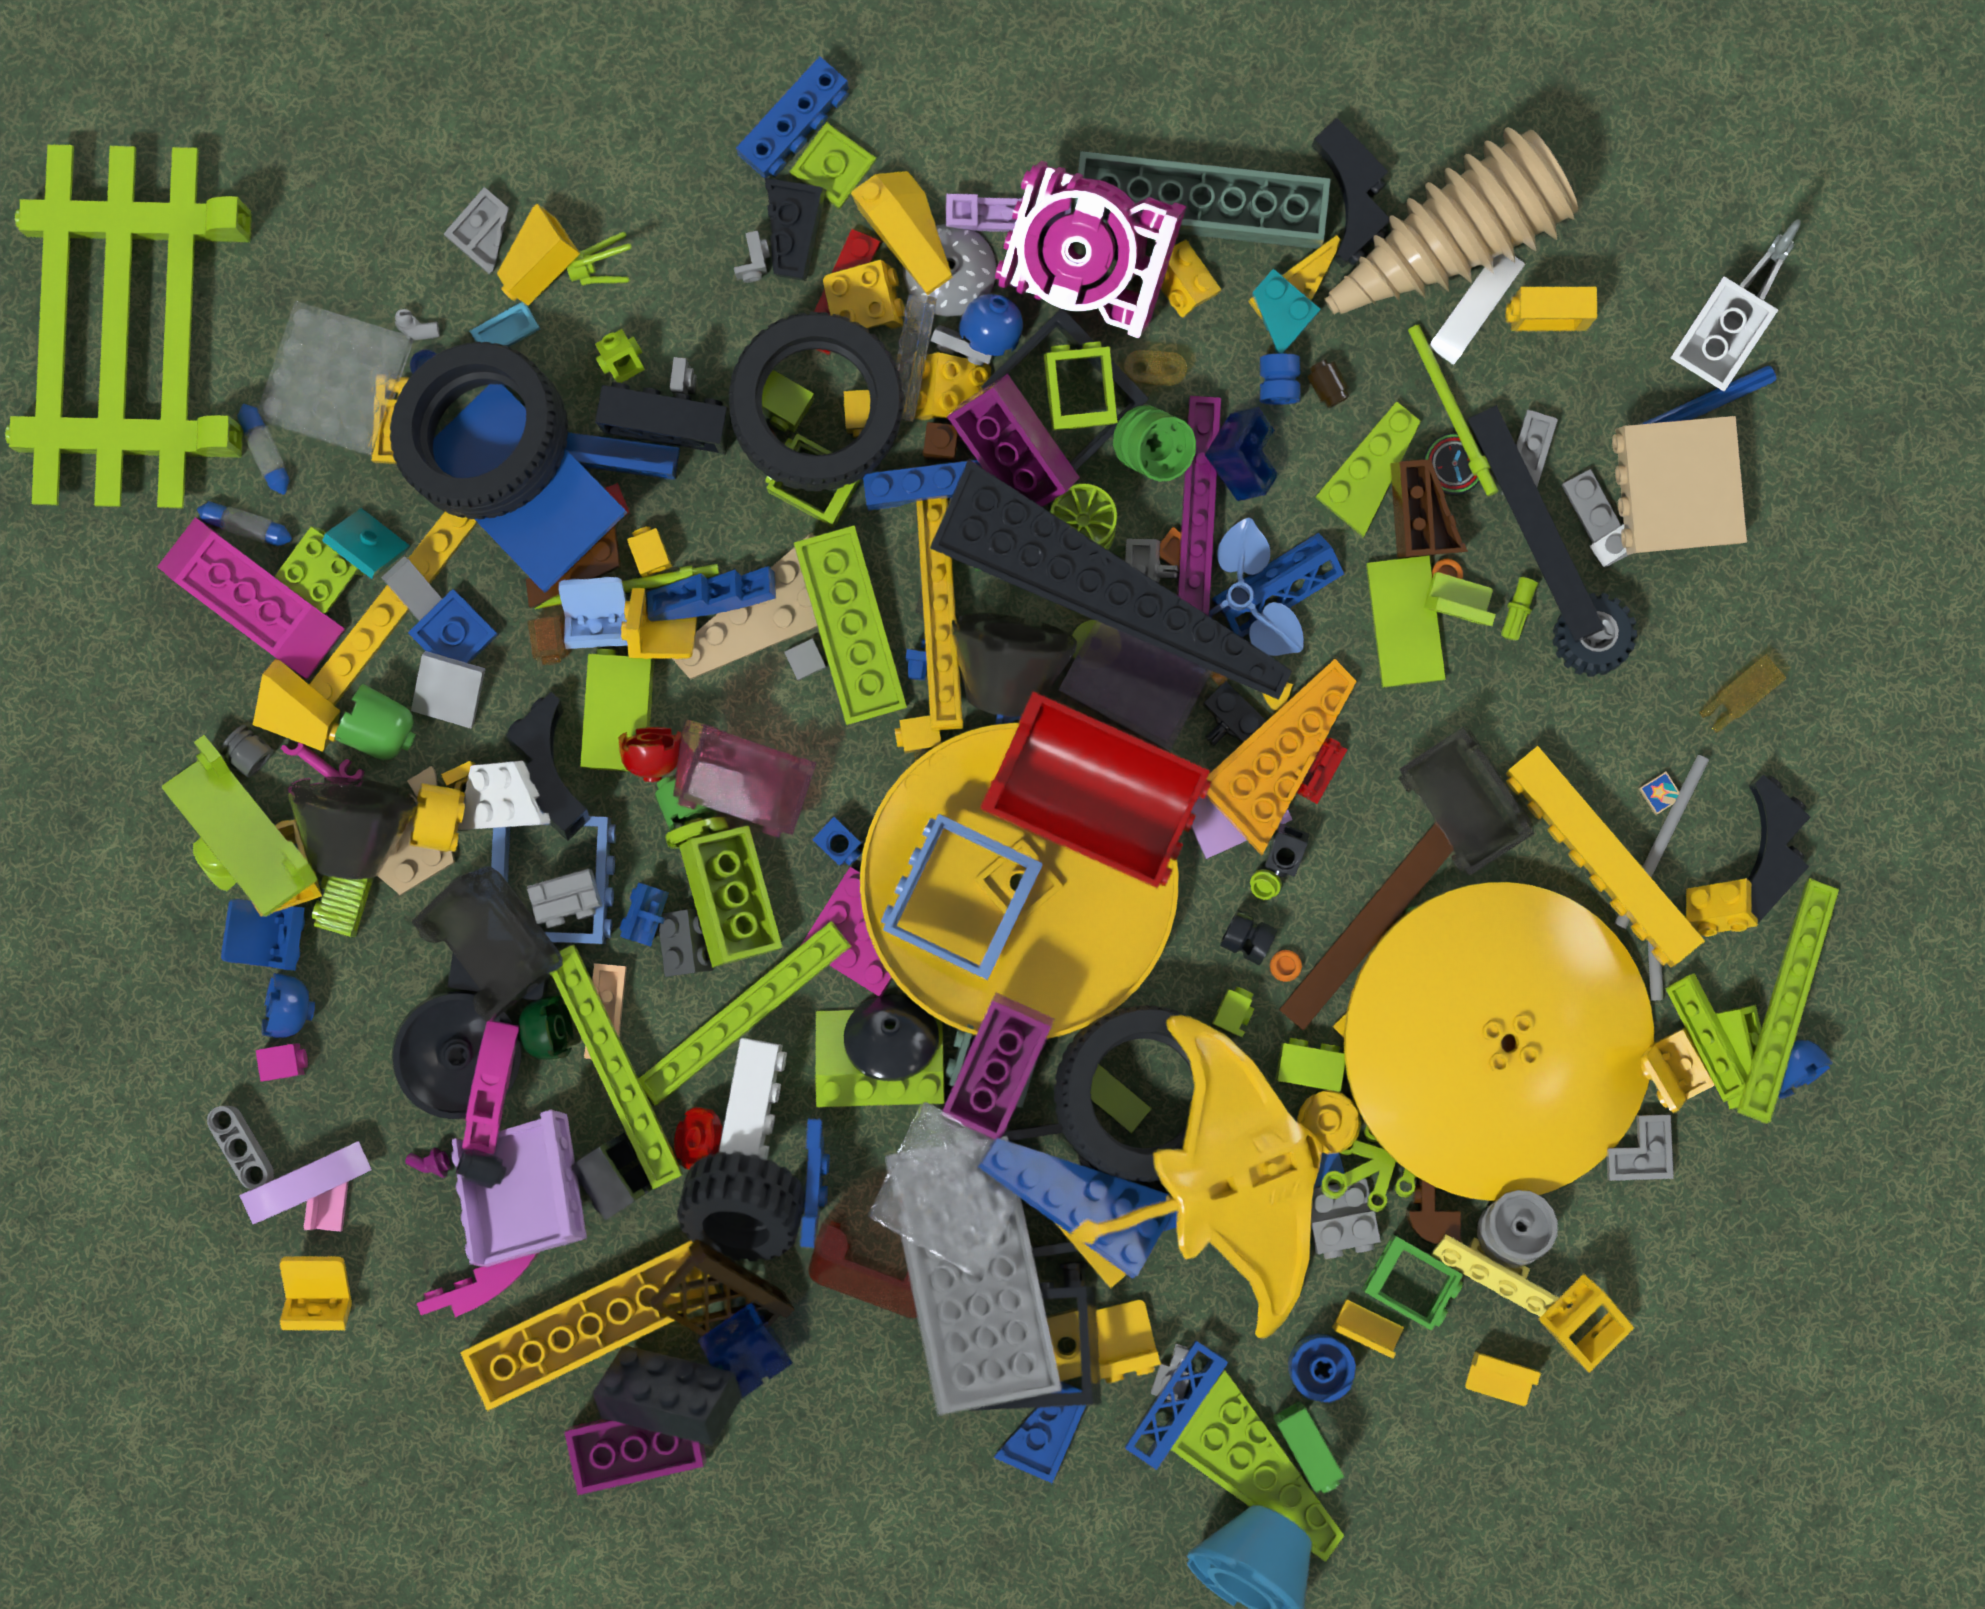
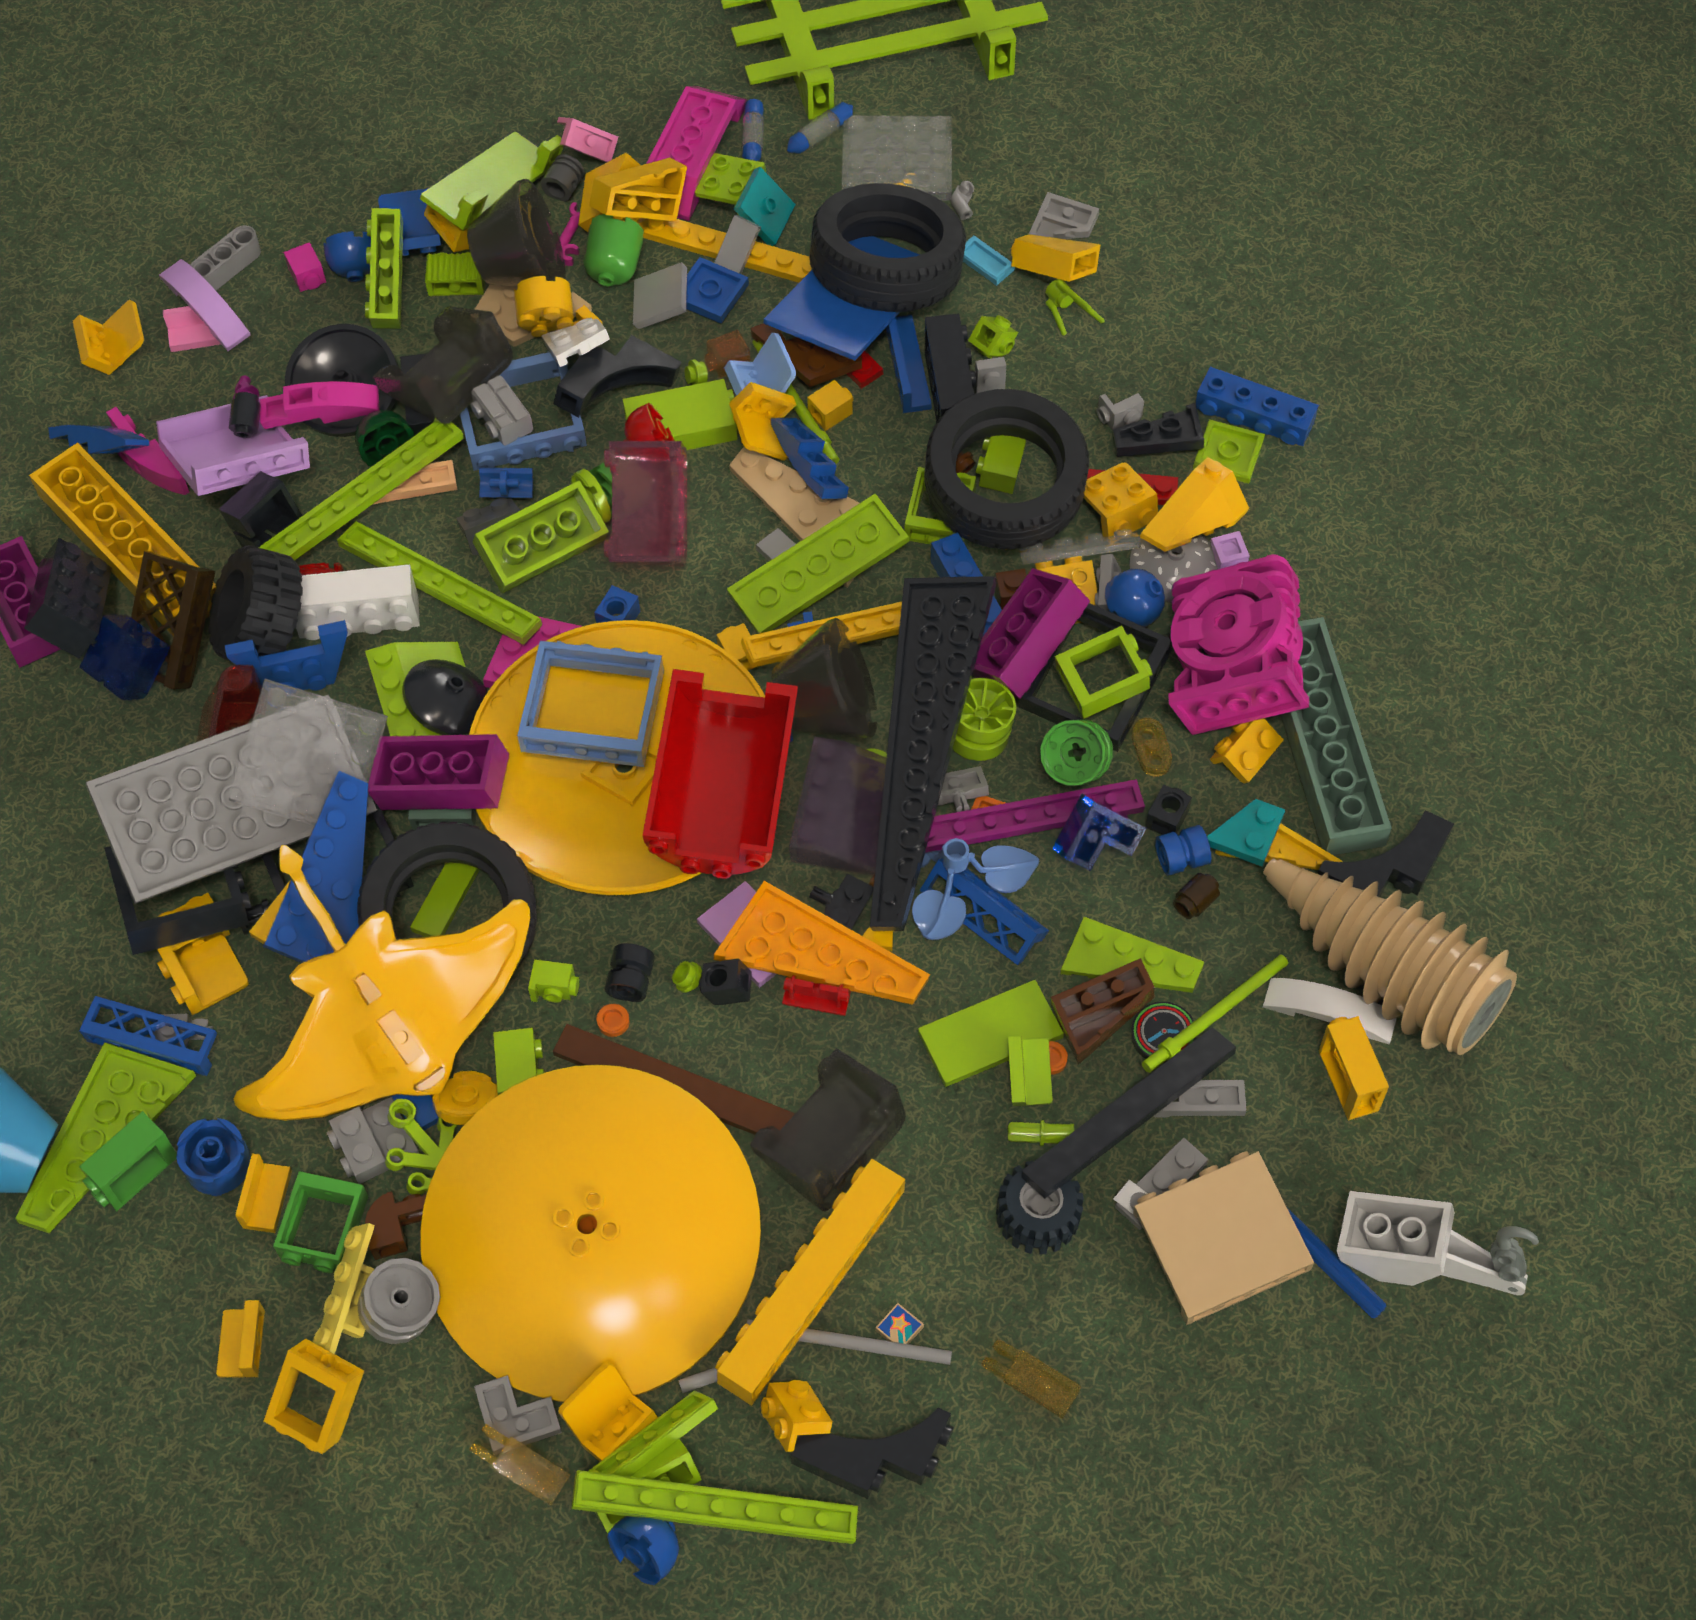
camera: 70 degrees right, 25 degrees down
(204, 709) = (587, 139): none -> bright pink panel
(320, 672) = (641, 191): none -> yellow wedge
(328, 974) = (385, 268): none -> lime brick
(462, 1324) = (99, 438): none -> blue slope
(561, 680) = (696, 372): none -> lime plate
(1043, 1438) = (92, 933): blue wing -> none
(1236, 390) = (1165, 822): none -> black brick
(1693, 1155) = (523, 1466): none -> clear yellow hinge

